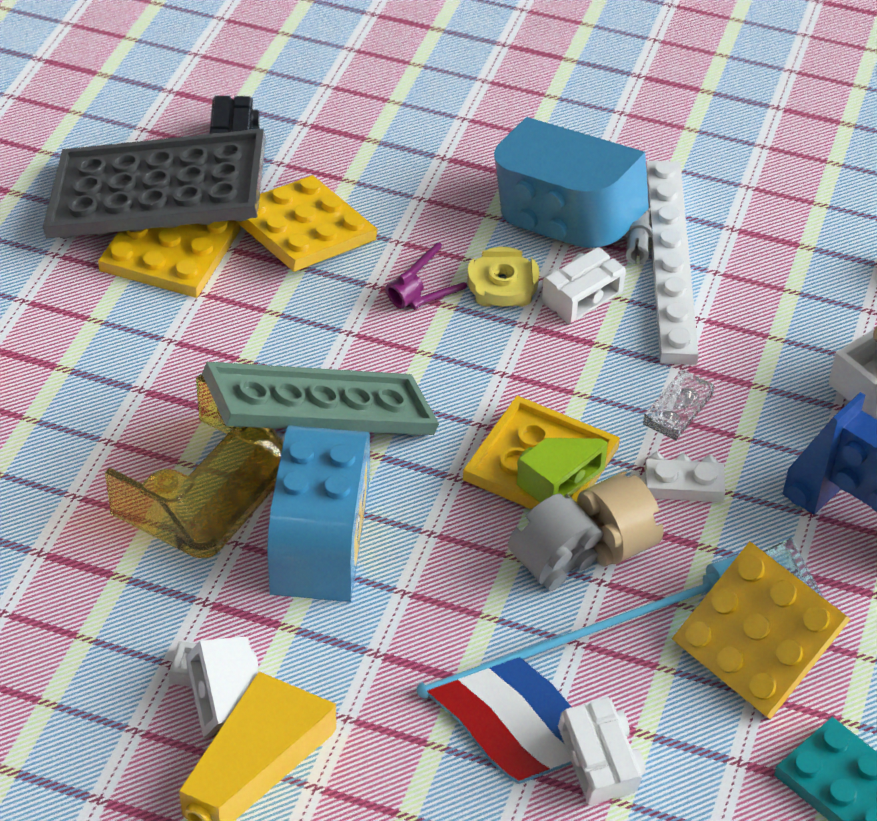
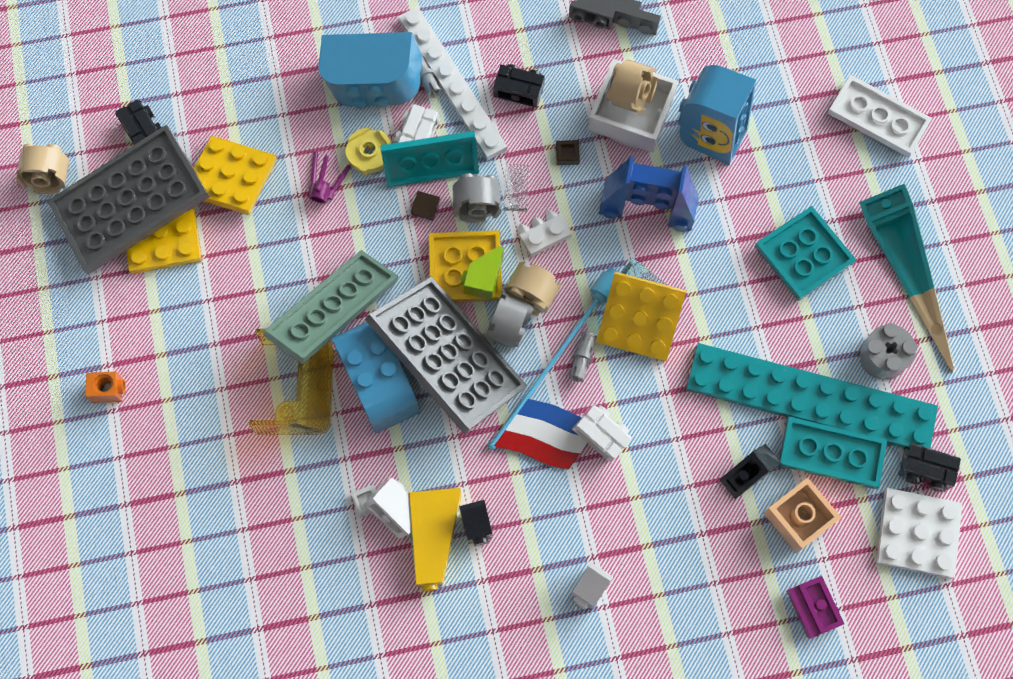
camera: 30 degrees left, 25 degrees up
(82, 111) = (42, 168): none -> tan brick
(326, 759) = (476, 523): none -> black slope
(436, 527) = (446, 354): none -> plate
(536, 370) = (425, 205): none -> dark brown tile
(578, 312) = (430, 159): none -> teal plate
(611, 382) = (476, 198): none -> light grey brick
(637, 646) = (582, 357): none -> light grey pin
(761, 296) = (519, 85): none -> black brick
(782, 402) = (567, 152): none -> dark brown tile

